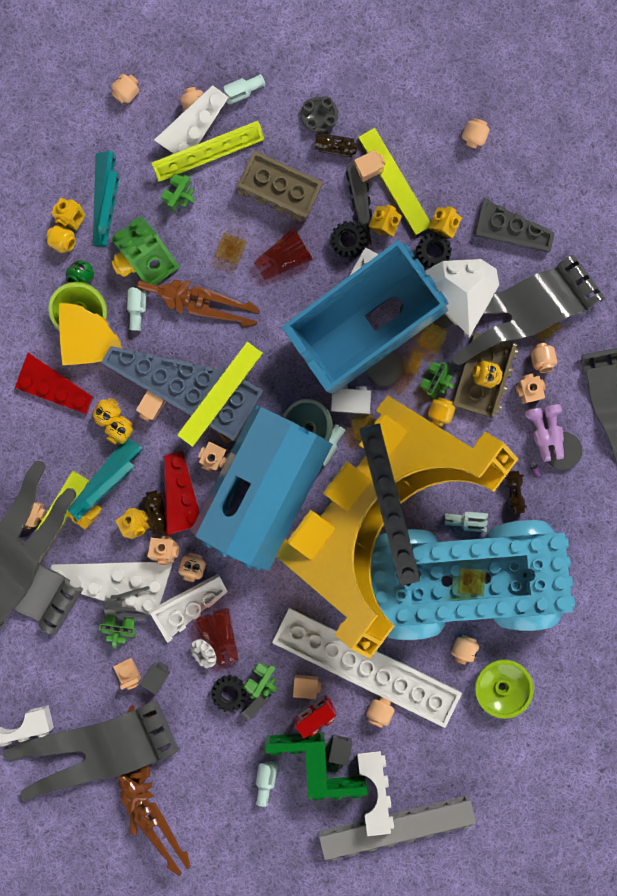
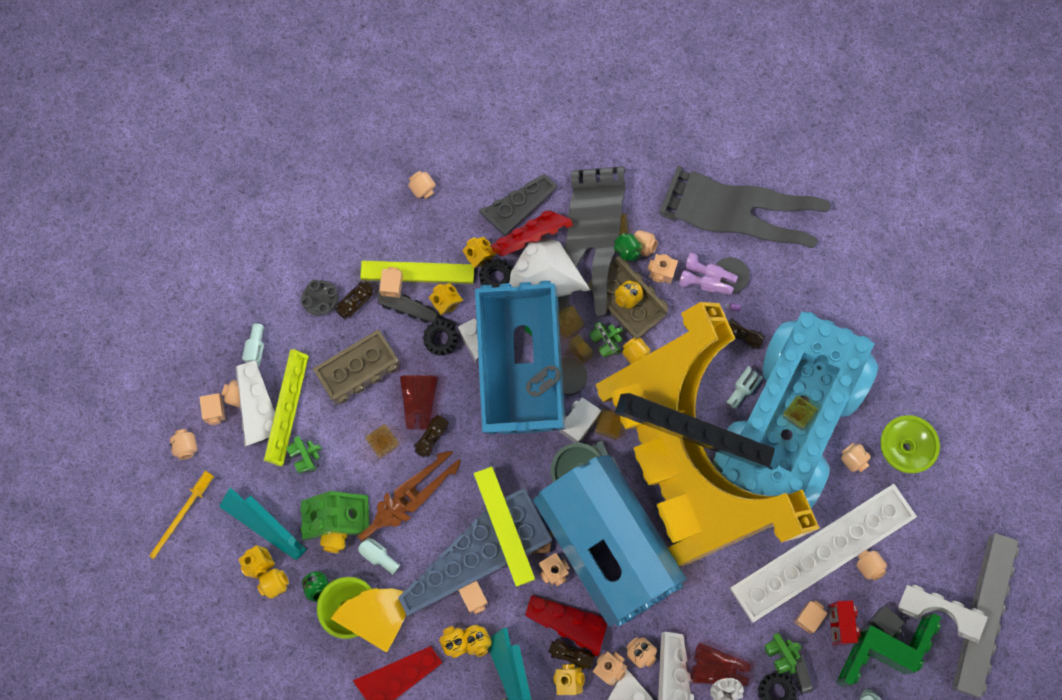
camera: 60 degrees left, 15 degrees down
(94, 126) = (197, 490): none -> yellow piece
(168, 91) = (212, 409): none -> light nougat brick
(267, 286) = (435, 429): none -> dark brown piece
(355, 345) = (546, 384): none -> dark grey beam
(490, 255) = (546, 223): none -> red wing
(529, 347) = (627, 247): none -> green head

